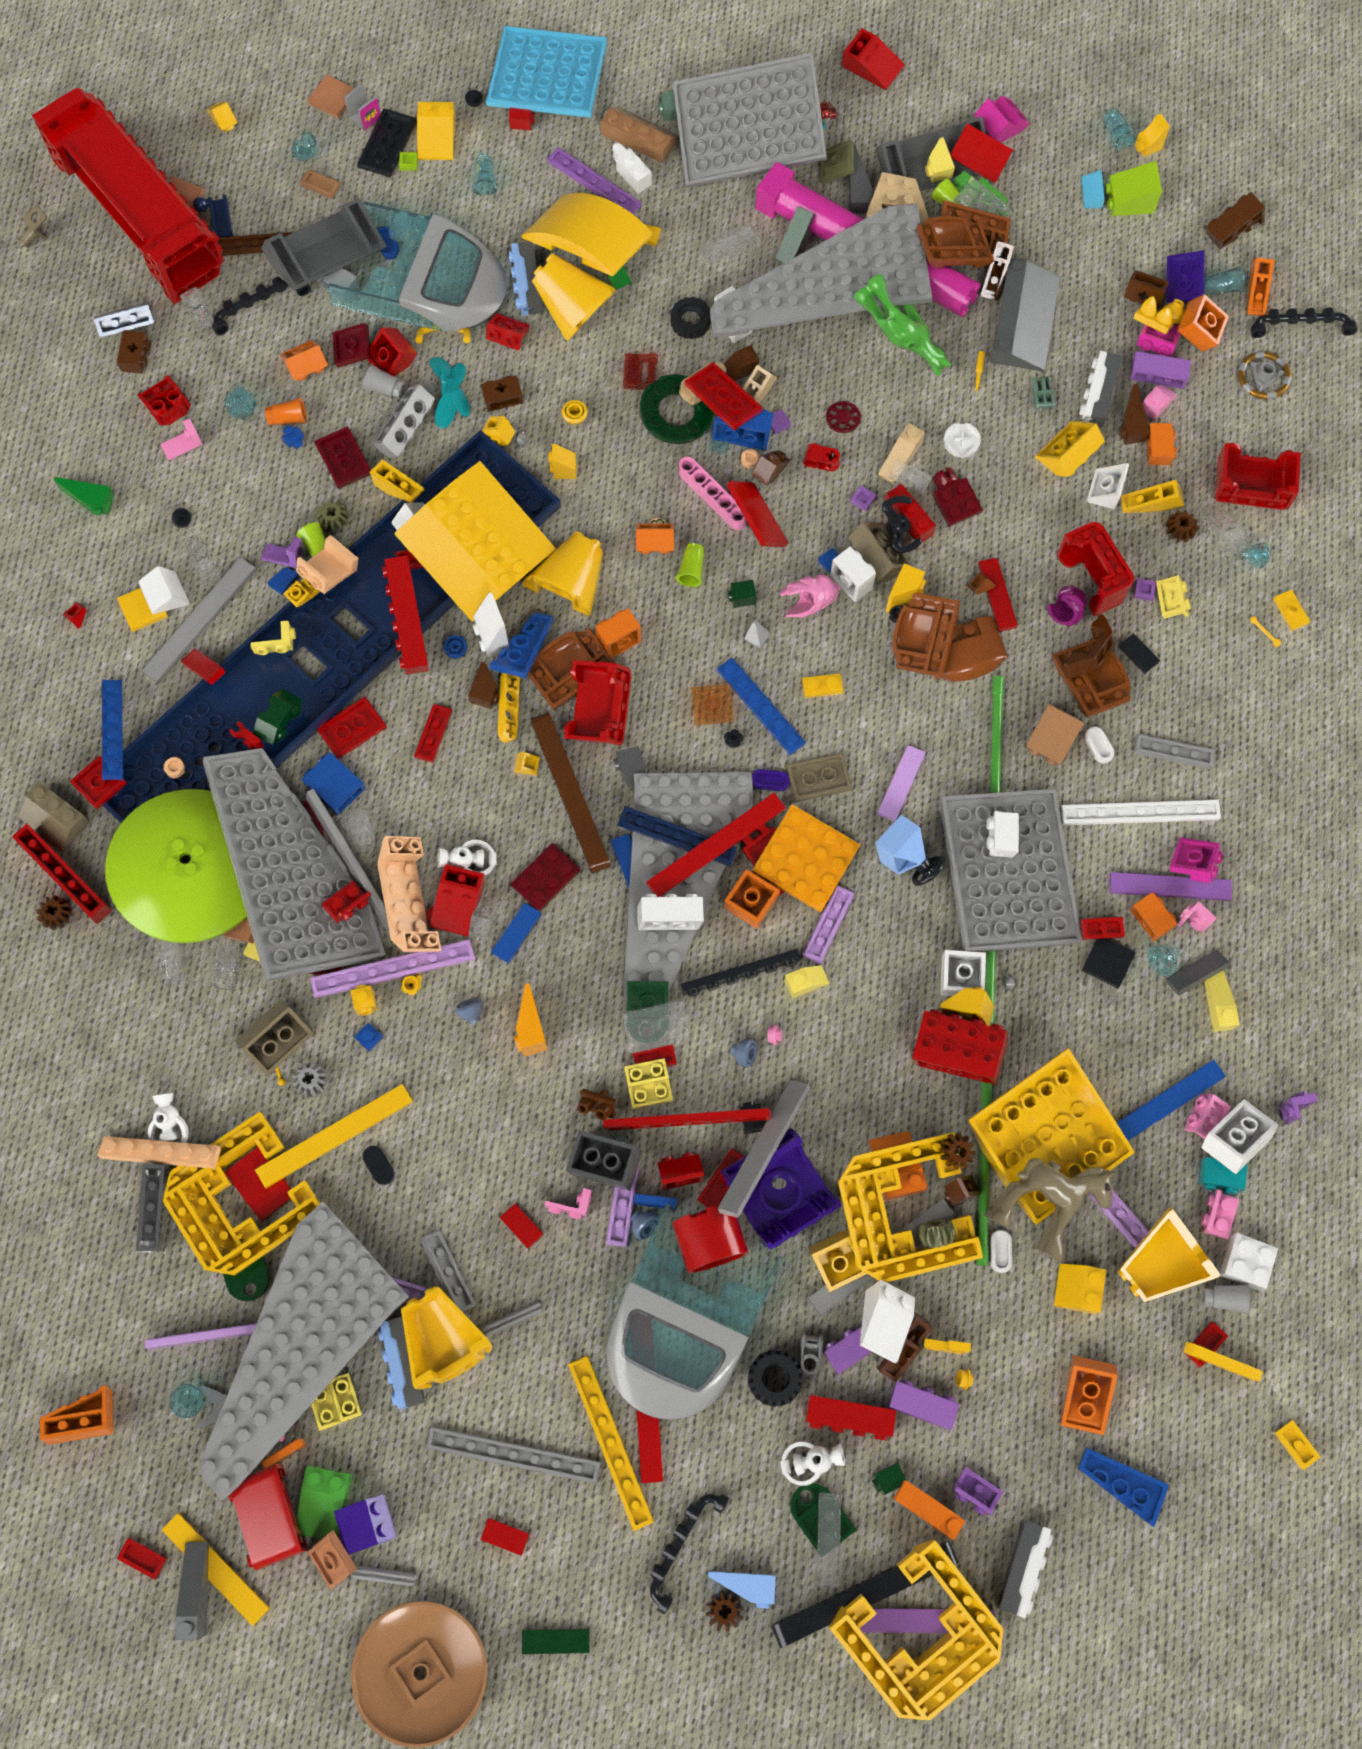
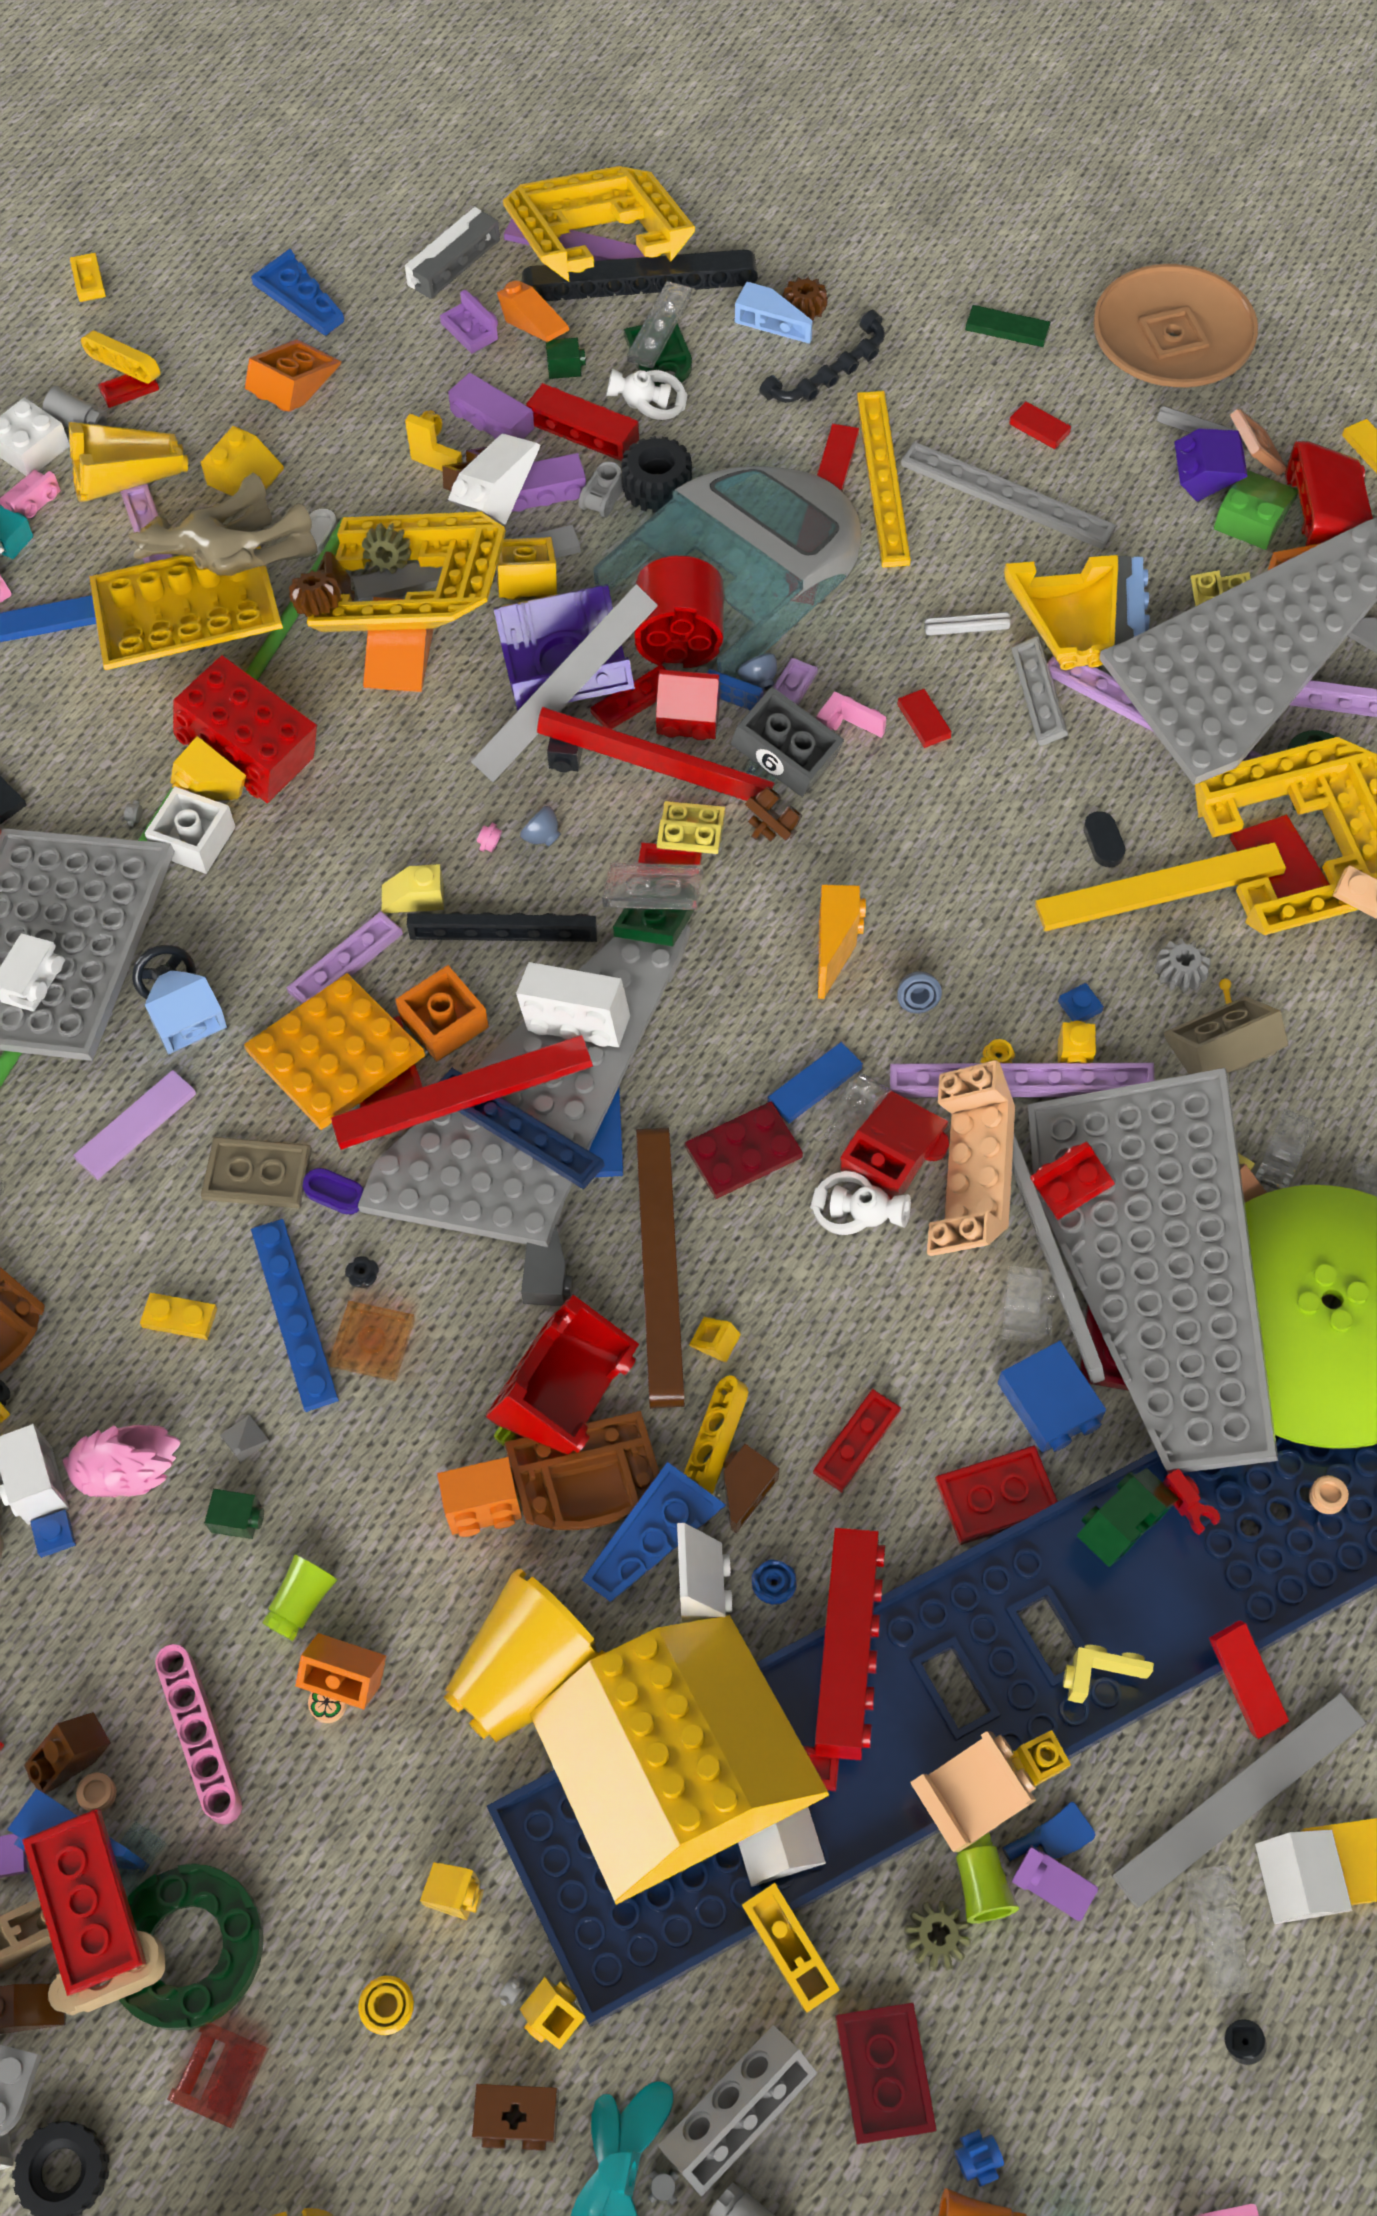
camera: 160 degrees left, 10 degrees down
(757, 514) = (137, 1654): red tile -> none

